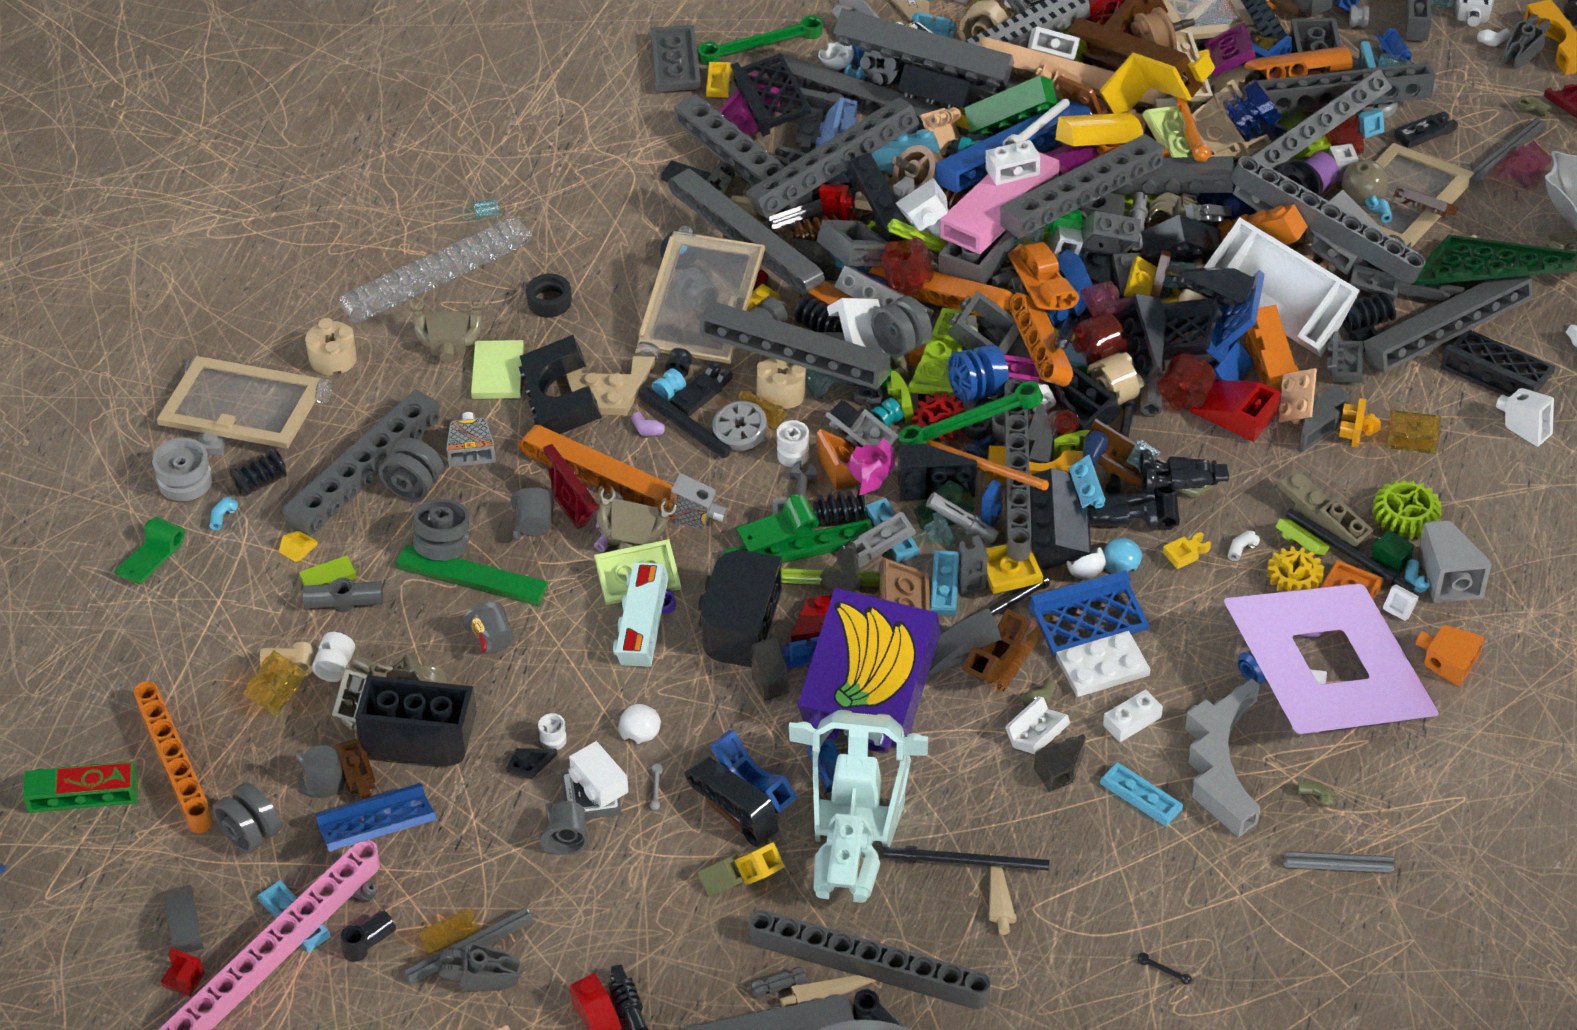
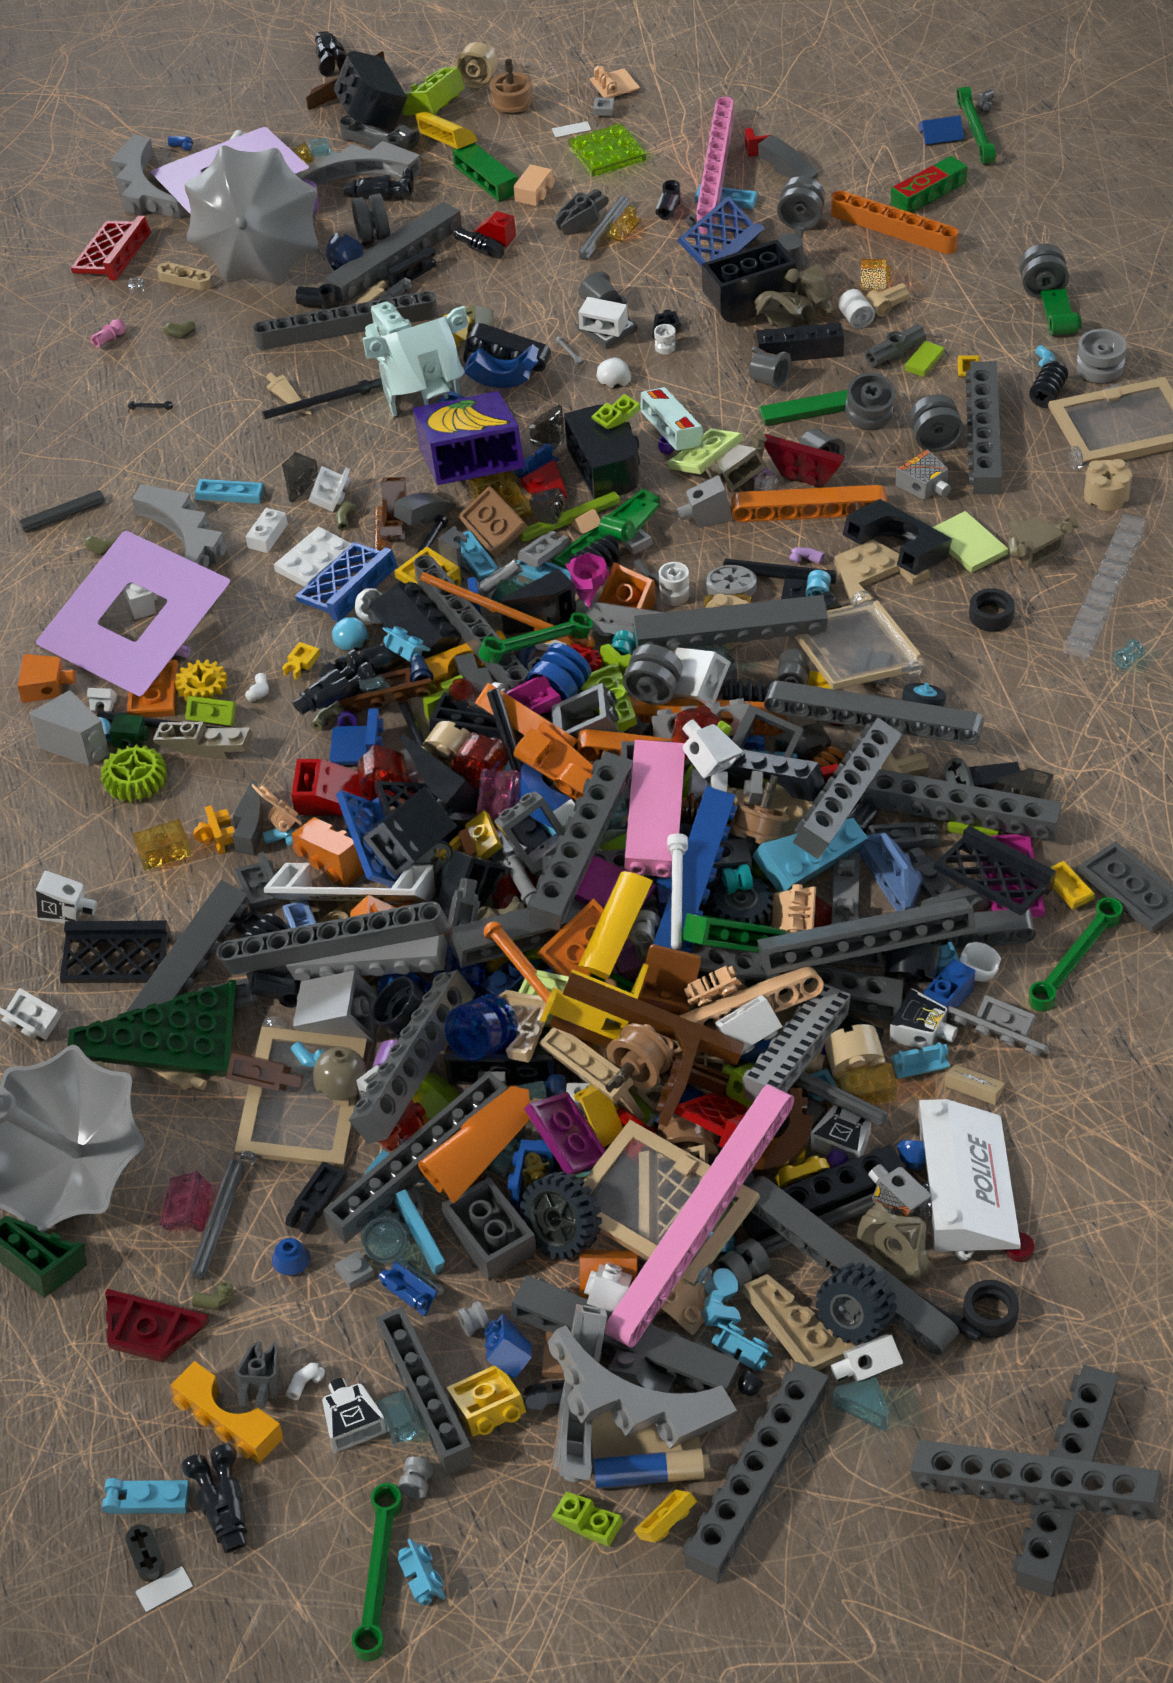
camera: 150 degrees right, 0 degrees up
(120, 583) = (1043, 269): none -> dark grey wheel
(434, 647) = (803, 341): none -> black slope
(676, 146) = (1027, 783): none -> clear smoke slope
(709, 600) = (617, 413): none -> lime slope
(734, 1000) = (412, 267): none -> black hinge
(814, 556) = (586, 521): none -> light nougat slope
(1013, 162) = (659, 816): white brick -> none
(1180, 439) = (352, 742): none -> blue bracket
(1465, 104) = (290, 1257): none -> blue cone

